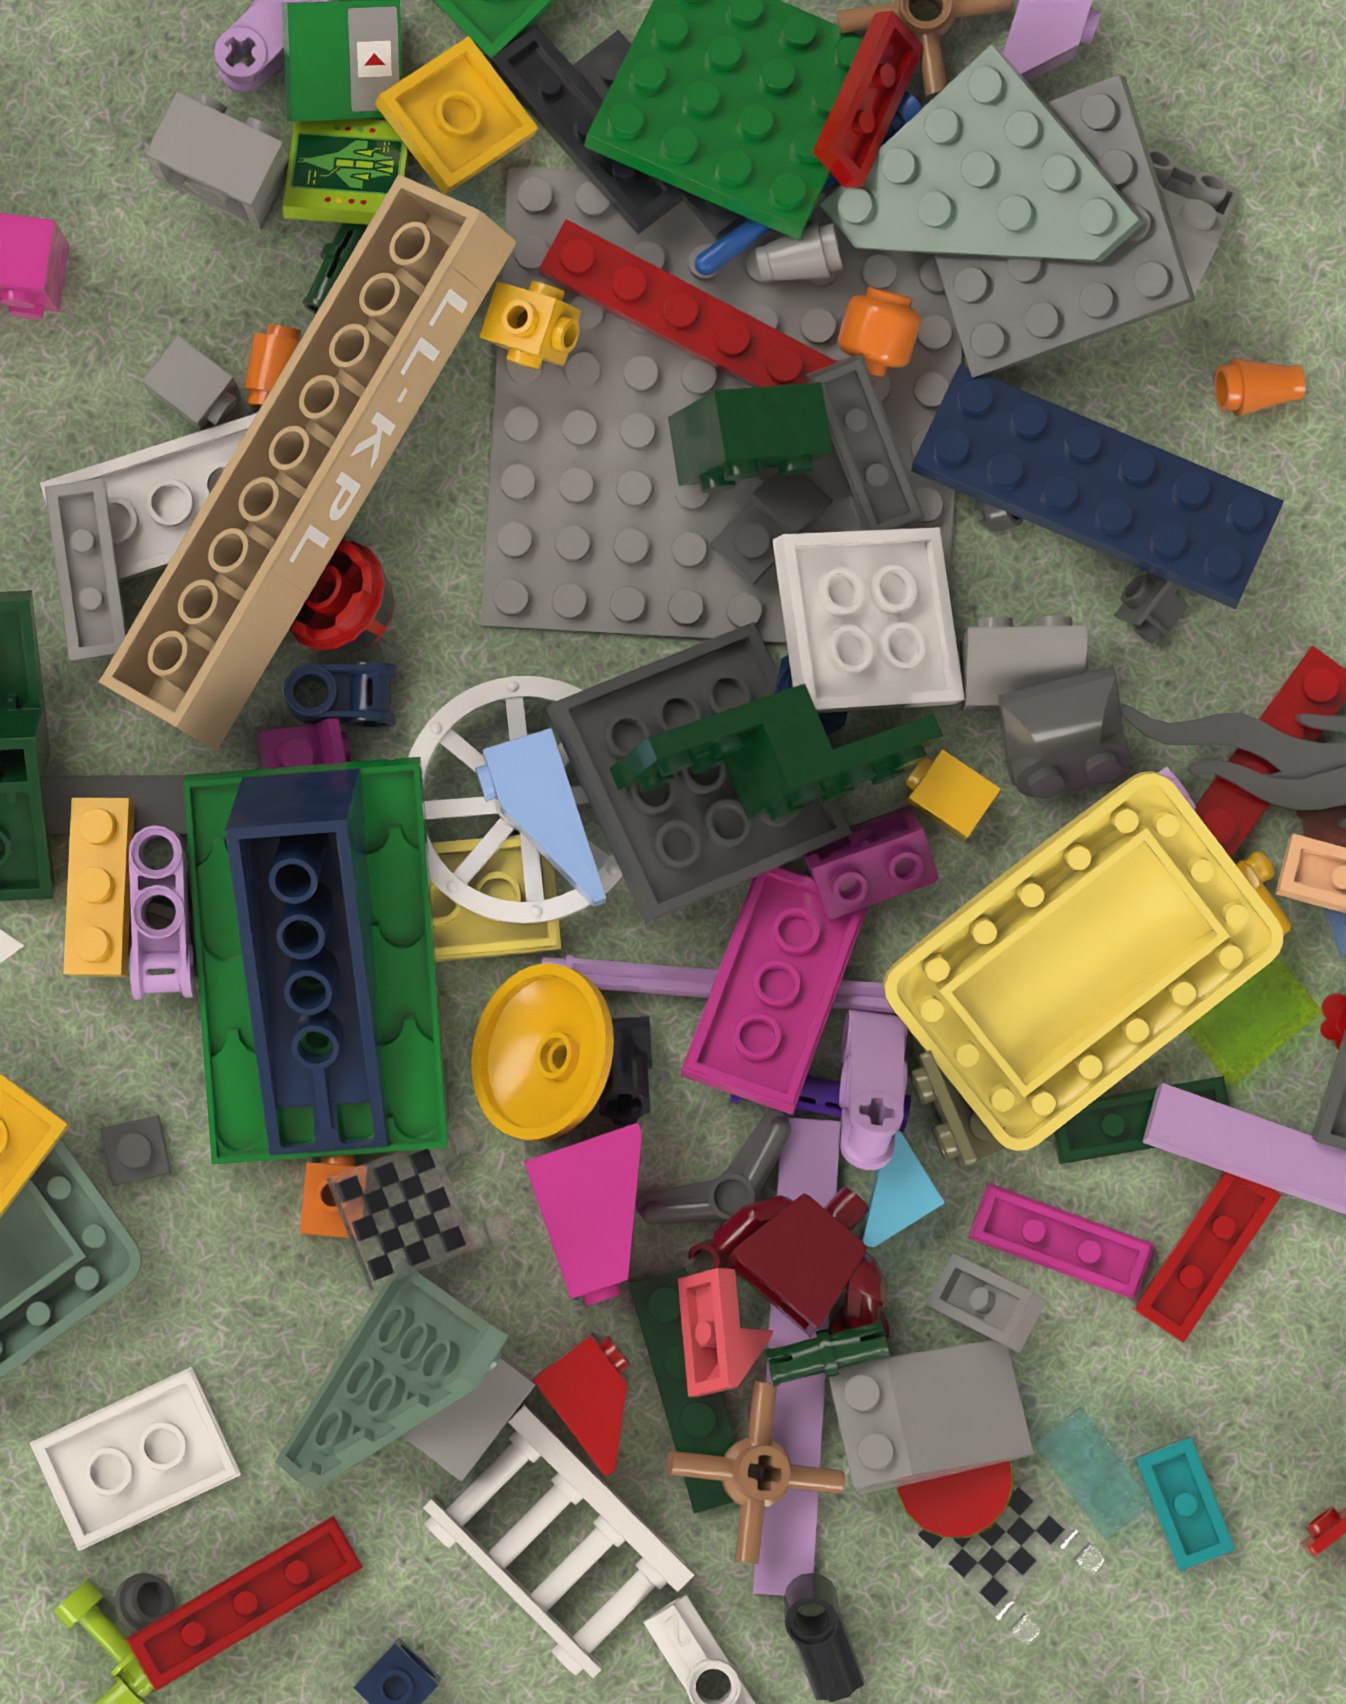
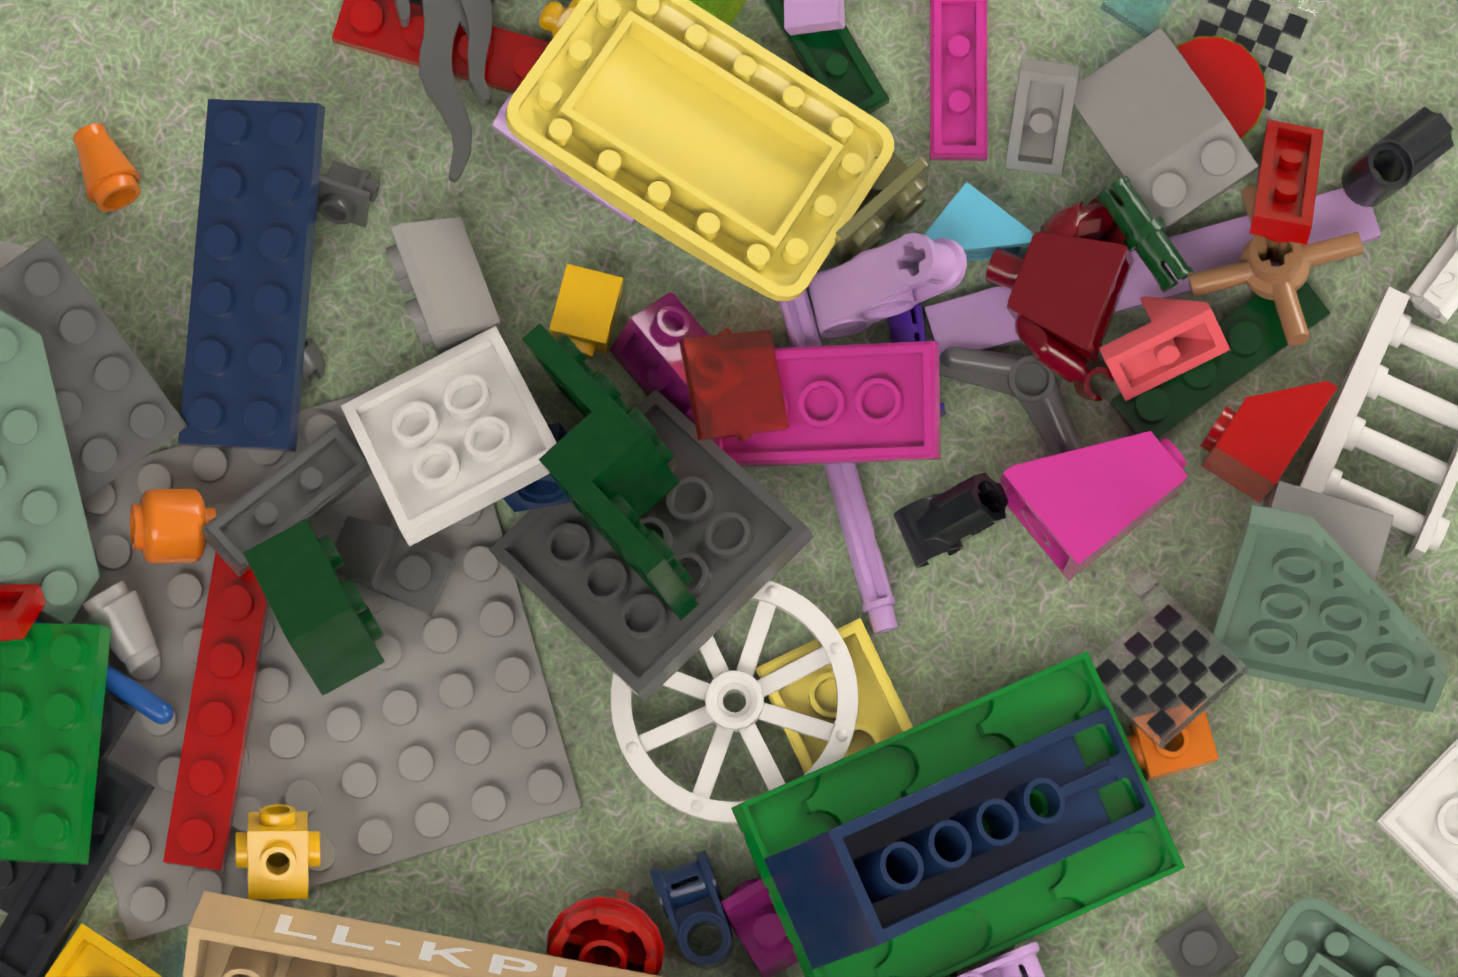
camera: 105 degrees left, 5 degrees down
(538, 801) = (732, 679): light blue slope -> none
(542, 1052) = (970, 618): yellow dish -> none
(822, 904) = (734, 384): none -> clear red piece
(832, 1514) = (1287, 182): none -> red plate
(1064, 734) = (496, 224): dark grey slope -> none

